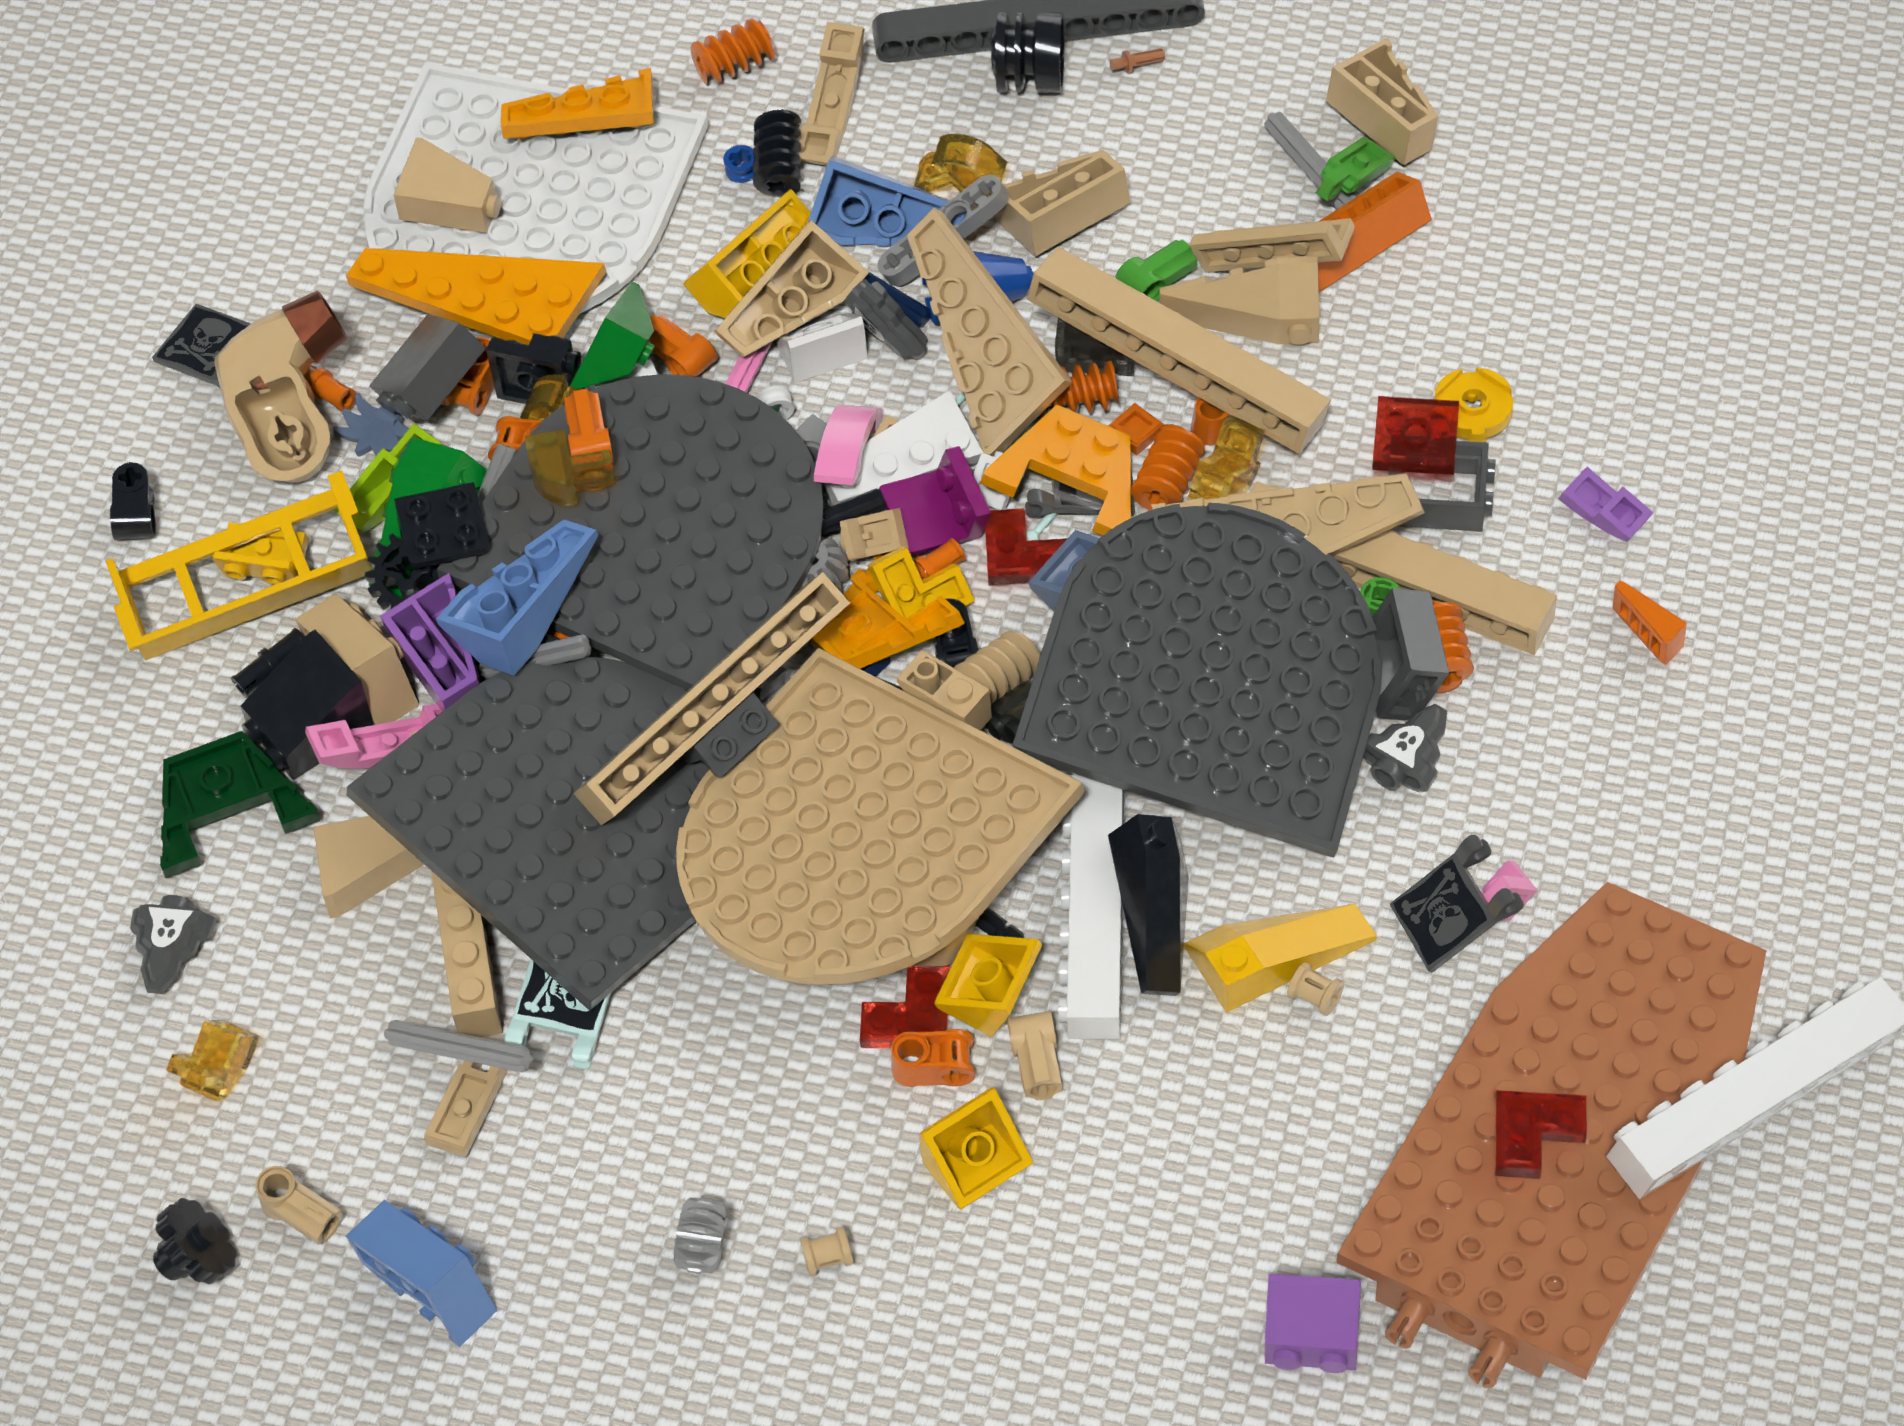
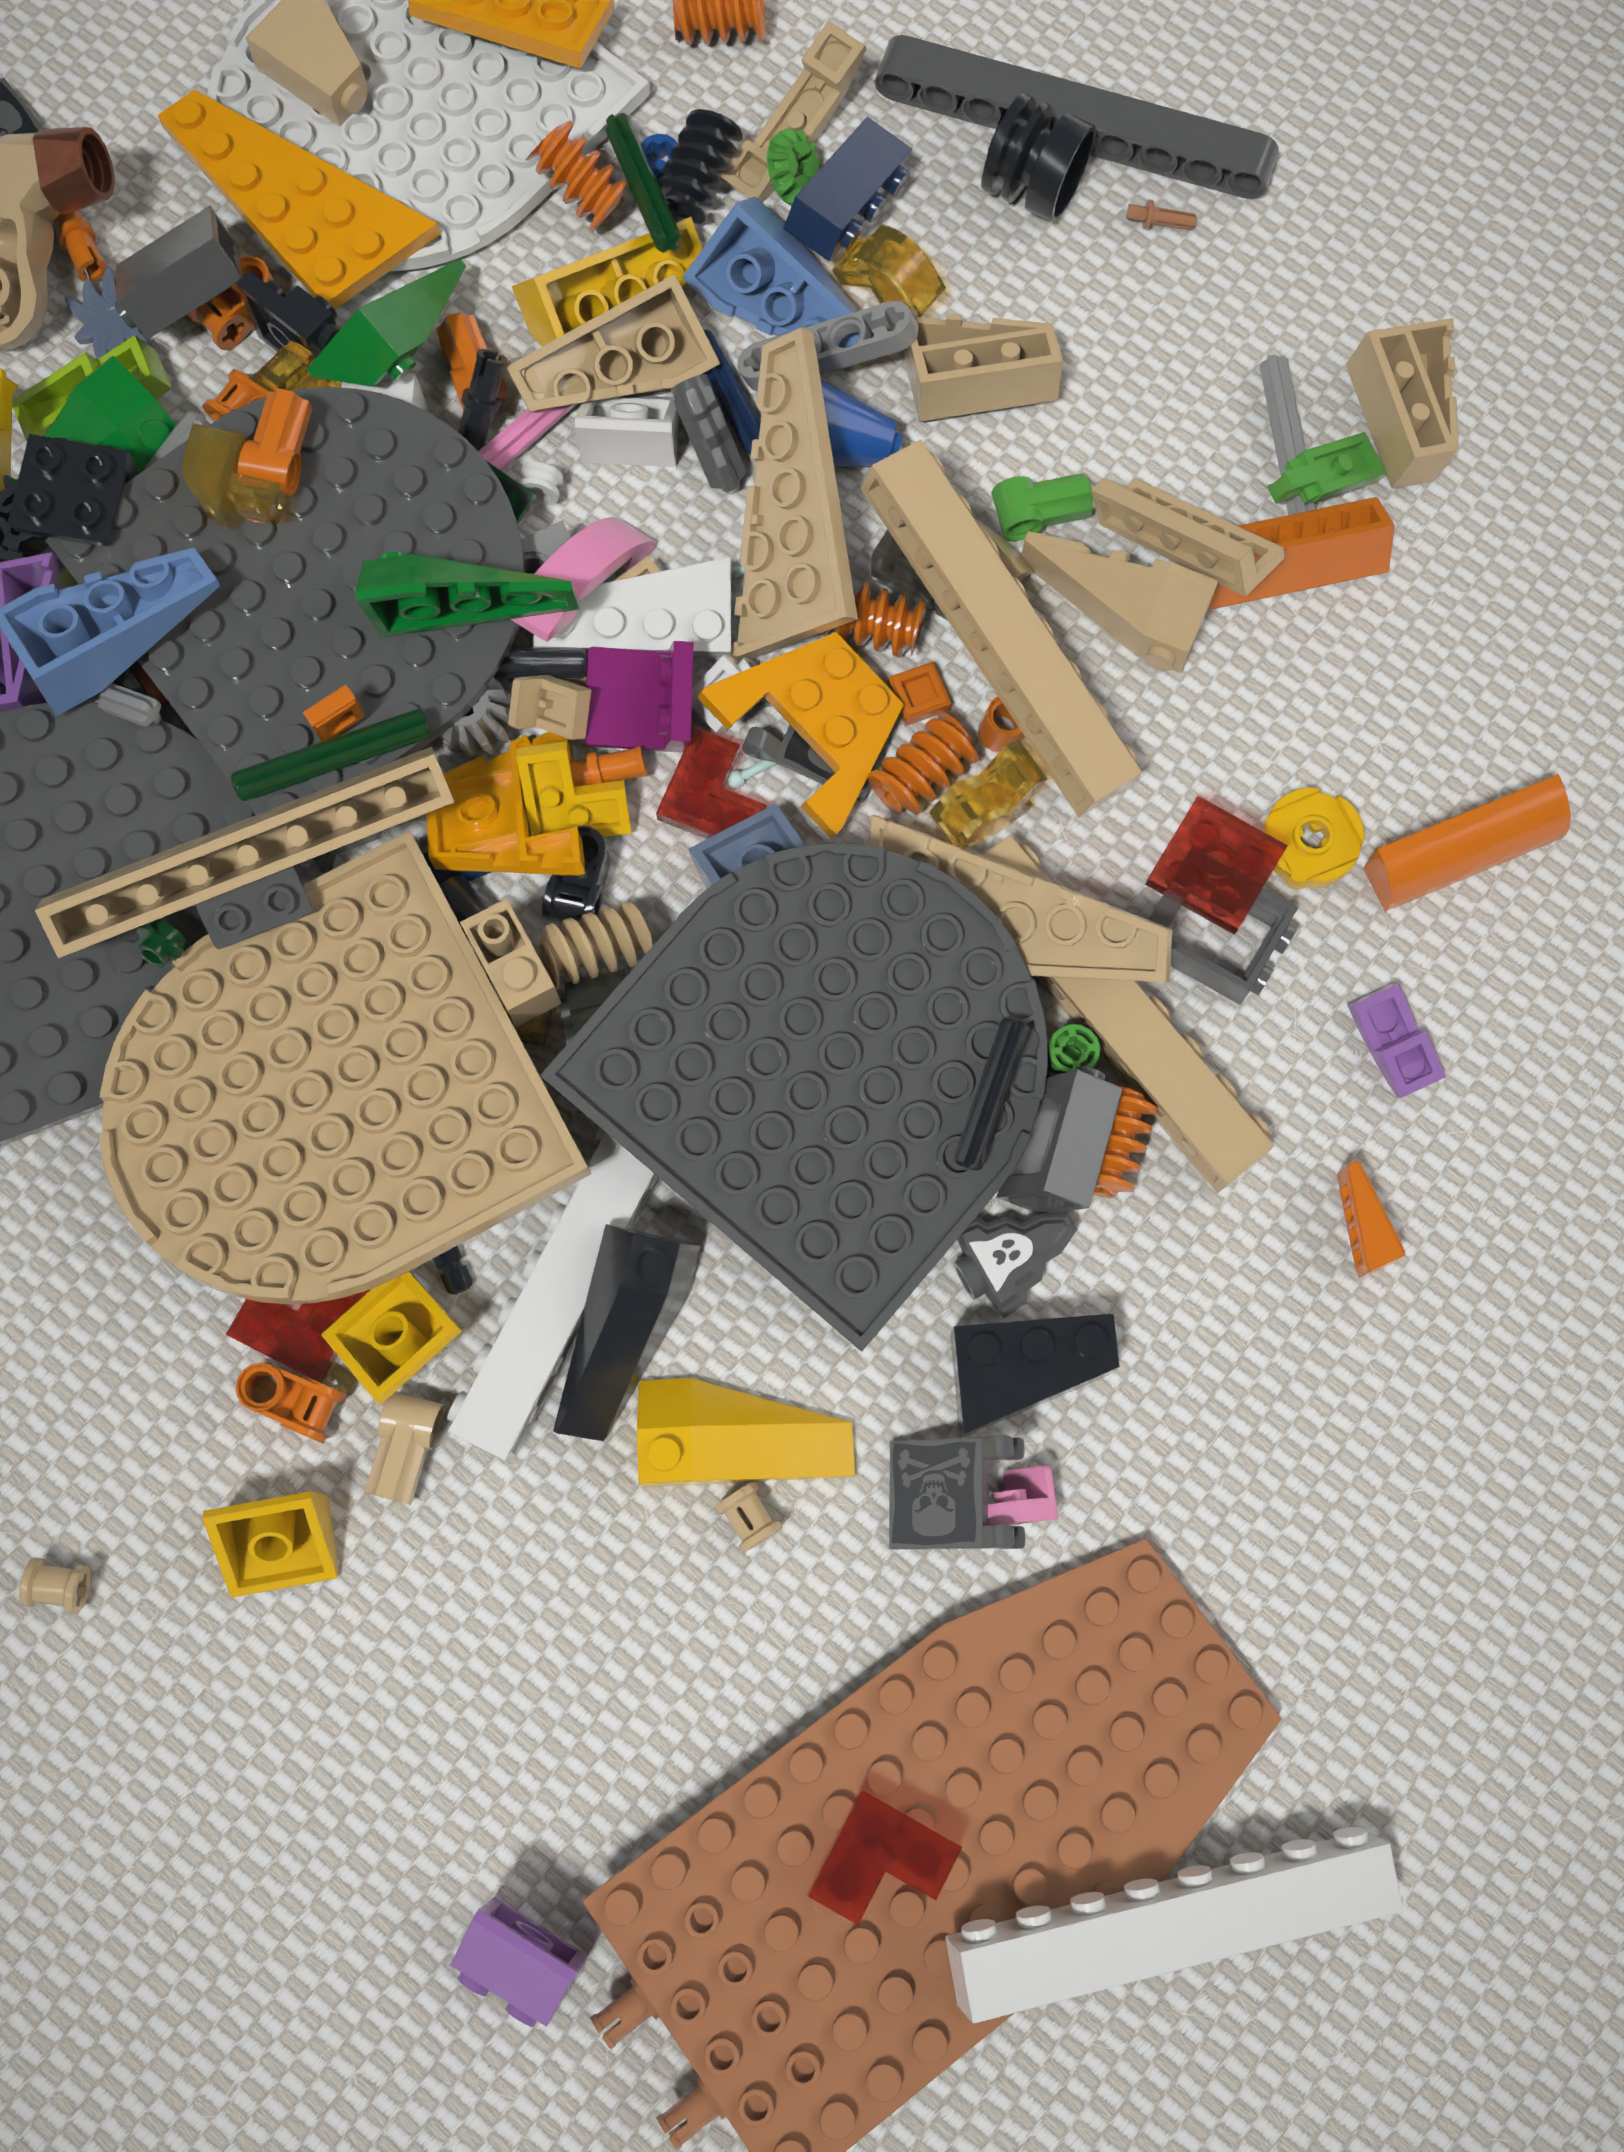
camera: 20 degrees right, 20 degrees up
(671, 786) = (160, 944): none -> dark green plate
(694, 190) = (579, 174): none -> orange piece
(704, 351) = (481, 397): none -> black pin
(726, 587) = (334, 713): none -> orange tile
(735, 617) = (330, 754): none -> dark green axle
(744, 179) = (643, 183): none -> dark green axle
(767, 476) = (432, 593): none -> green wedge
(850, 128) = (782, 163): none -> bright green gear
(902, 125) = (849, 190): none -> dark blue brick
(1339, 636) = (991, 1094): none -> black axle
(1460, 803) = (1026, 1363): none -> black wedge
(1586, 360) = (1469, 843): none -> orange brick

